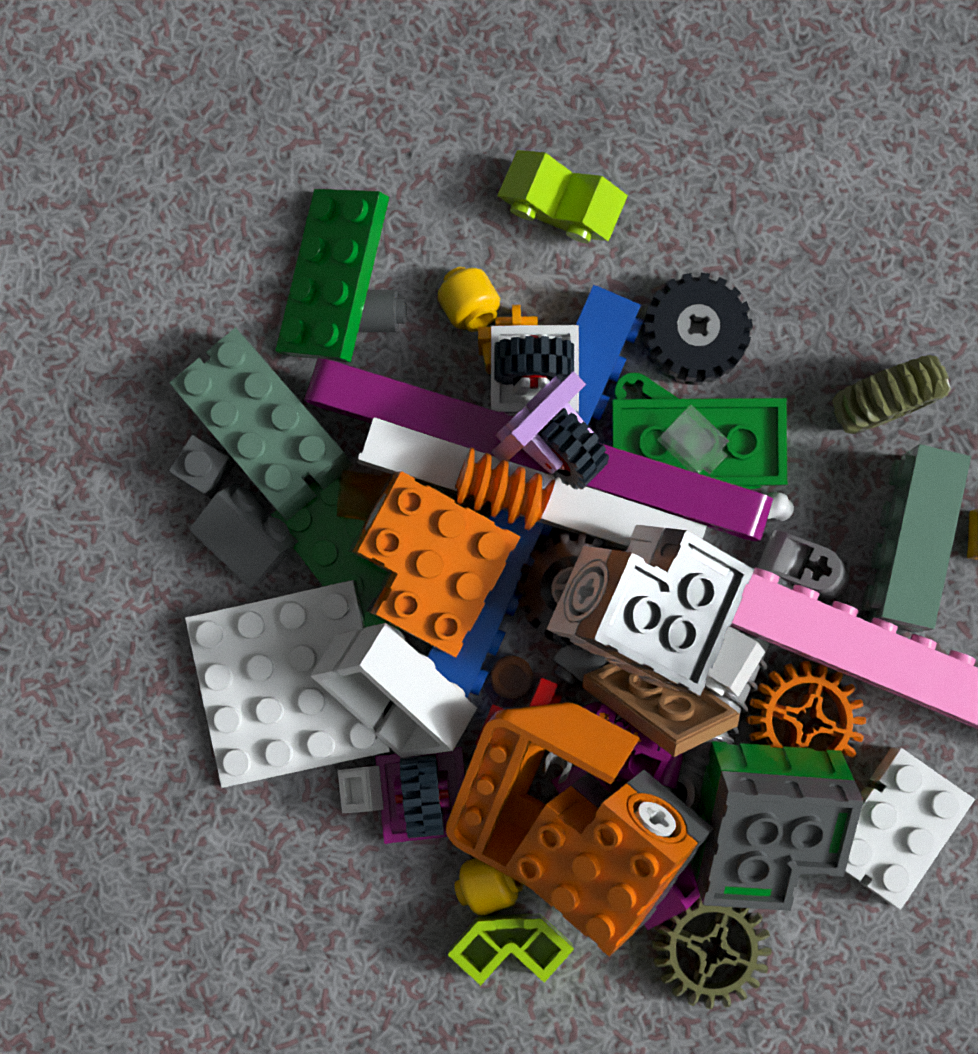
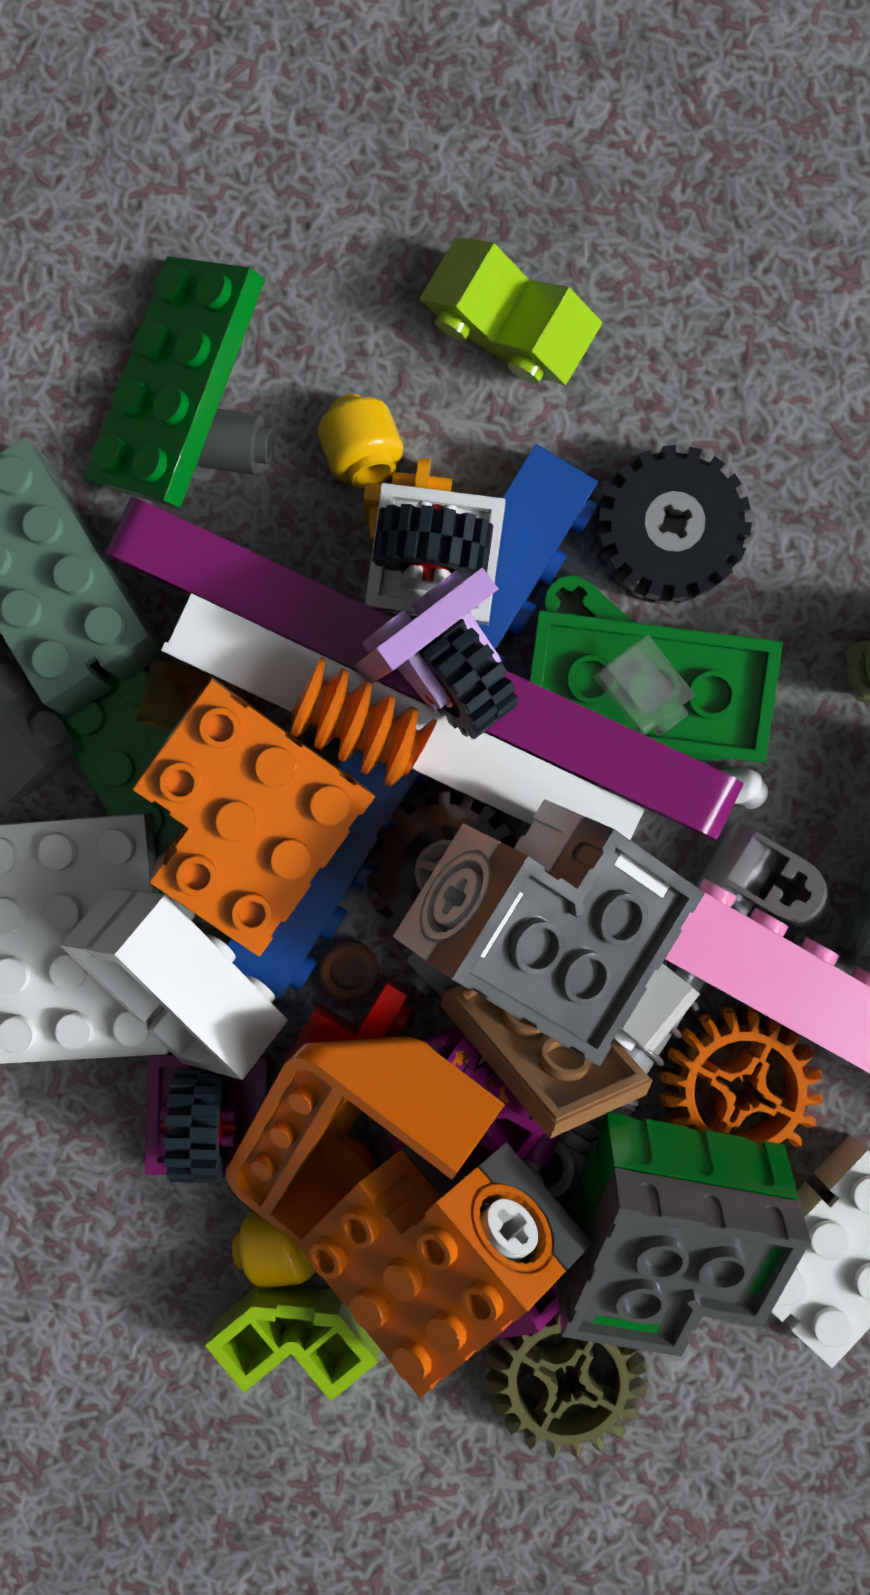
camera: 10 degrees right, 5 degrees up
(360, 789) = (123, 1096): white tile -> none

